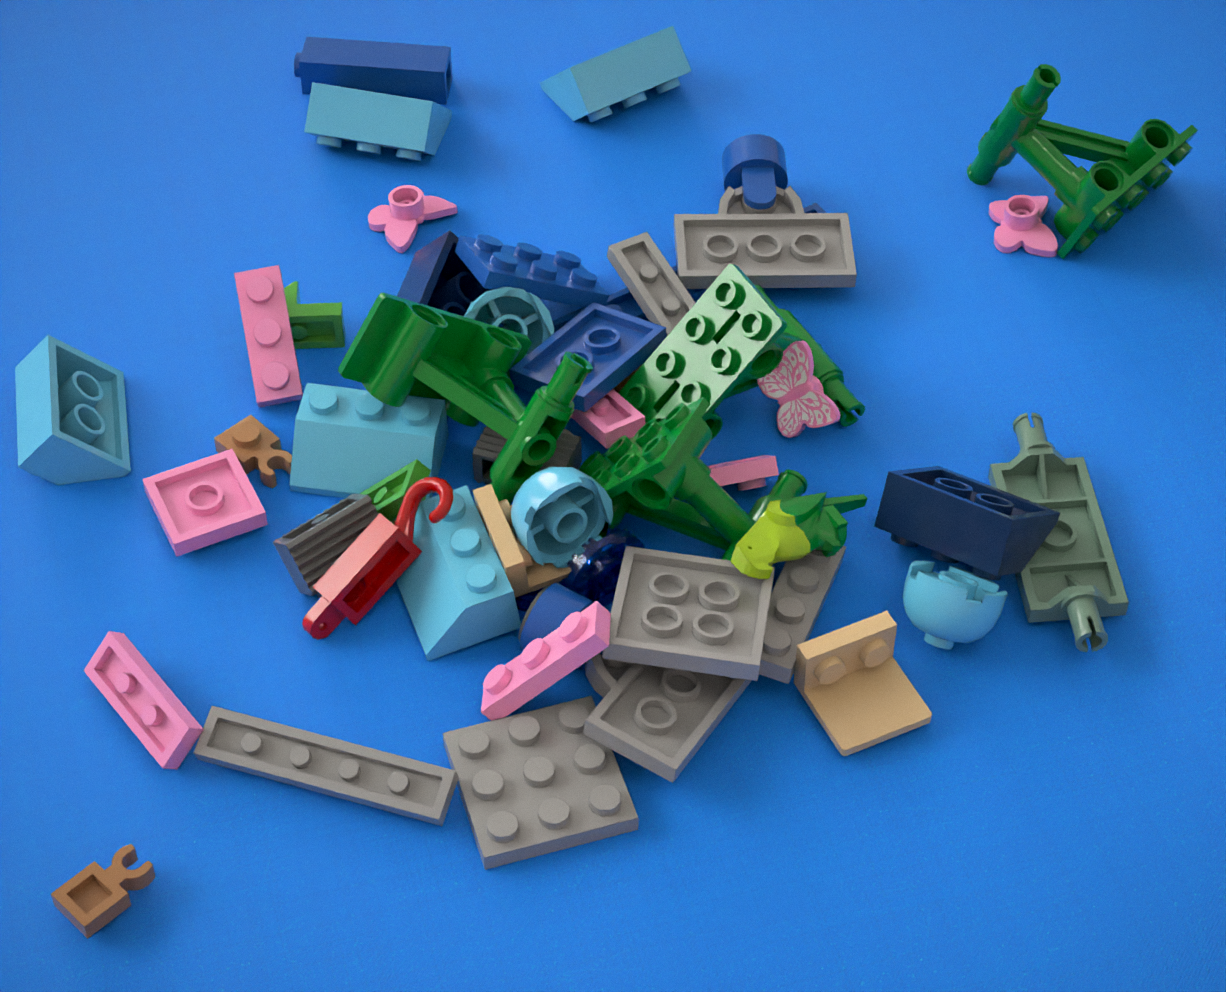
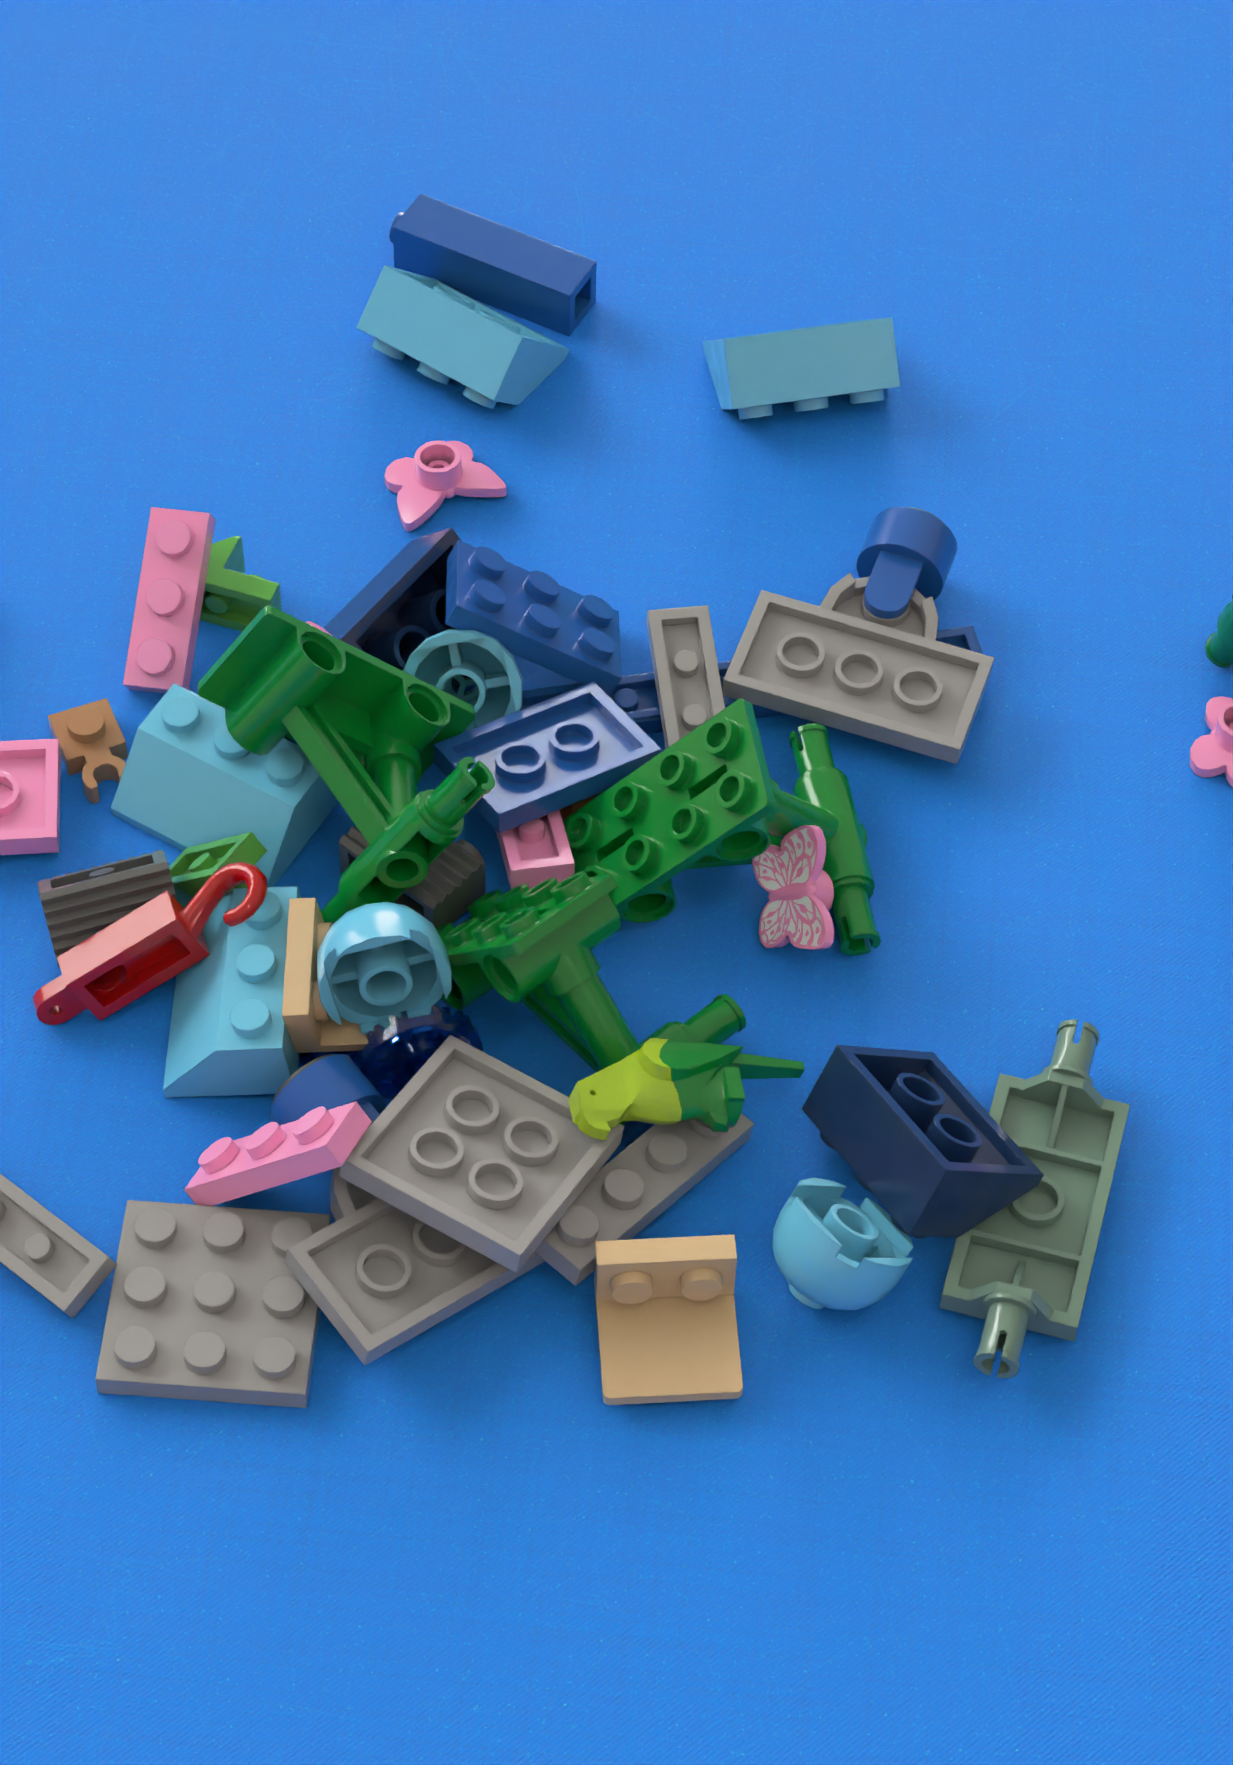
camera: 20 degrees right, 5 degrees up
(746, 472) = (678, 978): bright pink plate -> none

